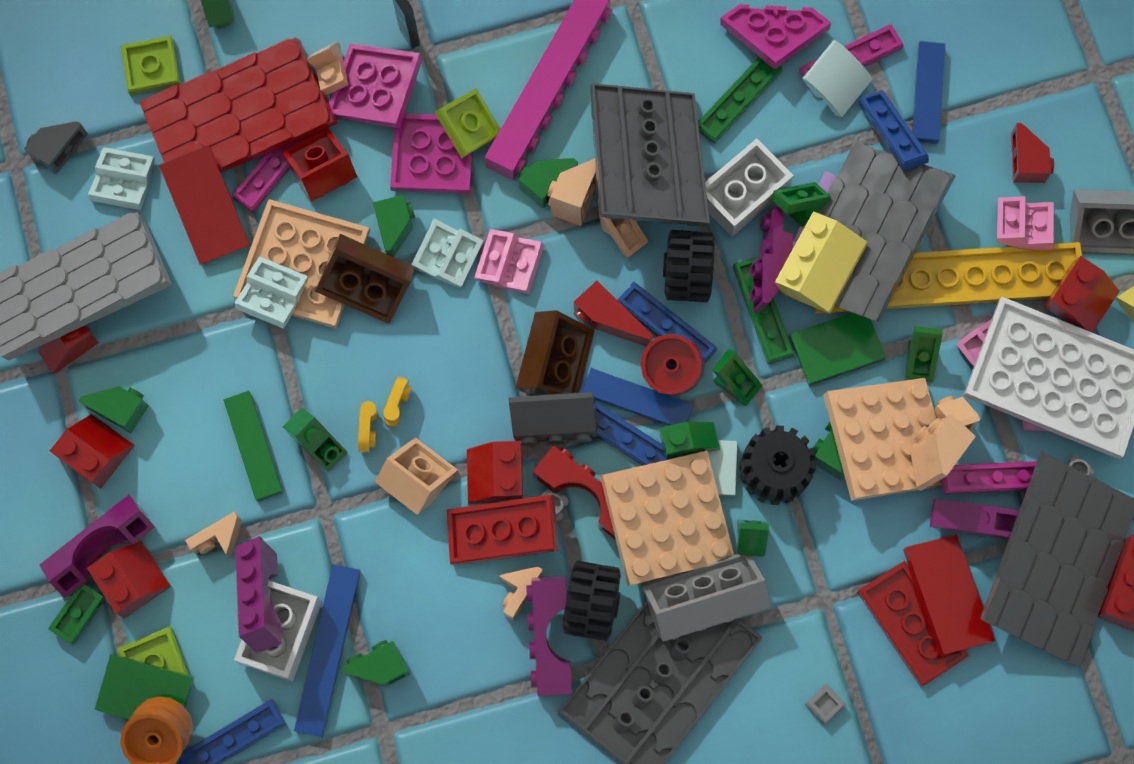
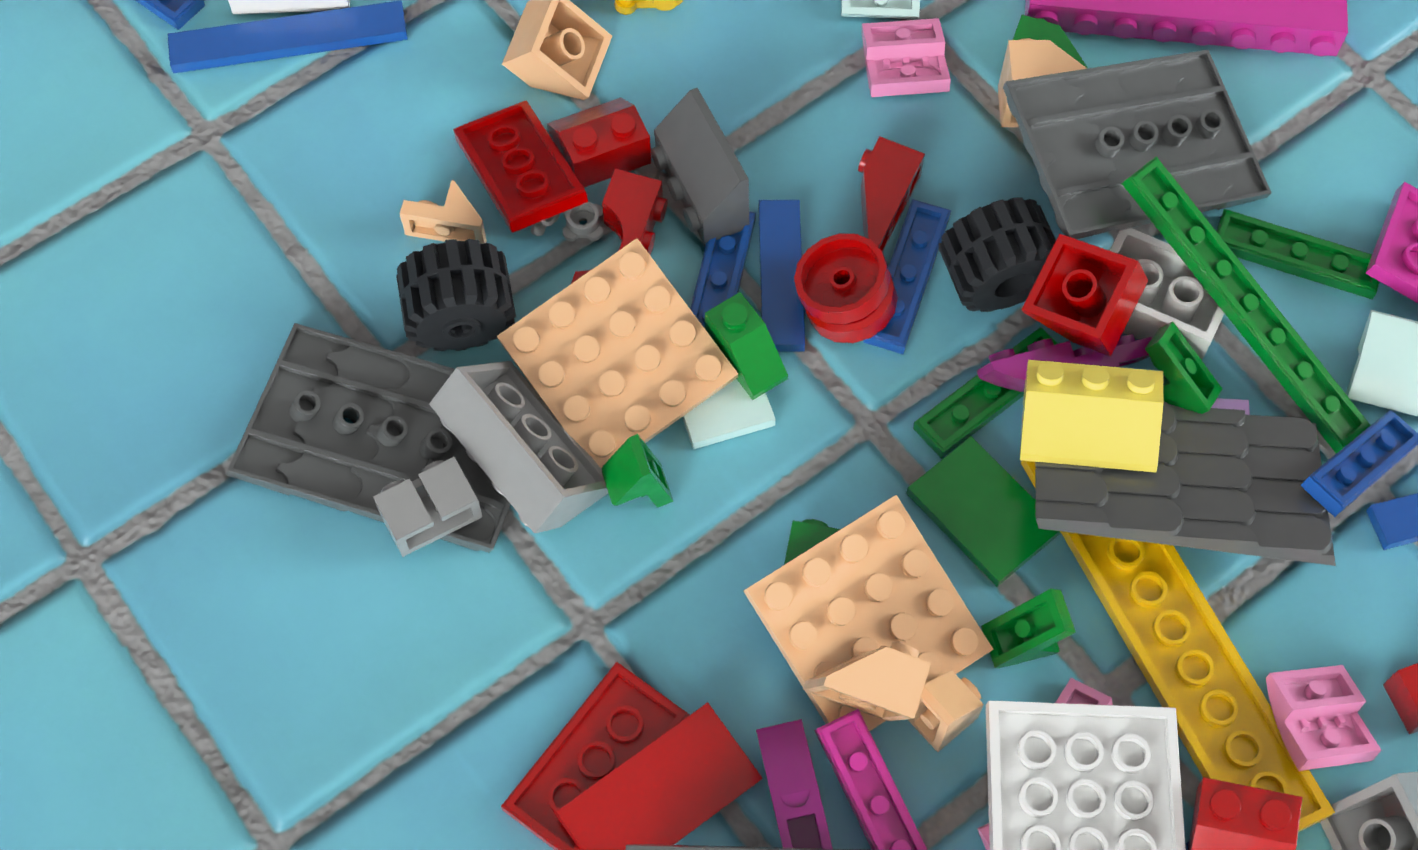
camera: 65 degrees right, 10 degrees down
(379, 667) = (284, 96): green slope -> none
(552, 671) = (346, 288): magenta arch -> none
(554, 355) = (796, 150): reddish brown slope -> none
(625, 233) = (1013, 171): light nougat slope -> none
(726, 664) = (428, 506): none -> light grey piece
(736, 377) = (868, 382): green slope -> none
(744, 231) = (1086, 293): none -> red slope
(773, 481) = (762, 500): black wheel -> none
(775, 145) = (1246, 304): none -> green tile
(825, 704) = (425, 675): light grey tile -> none

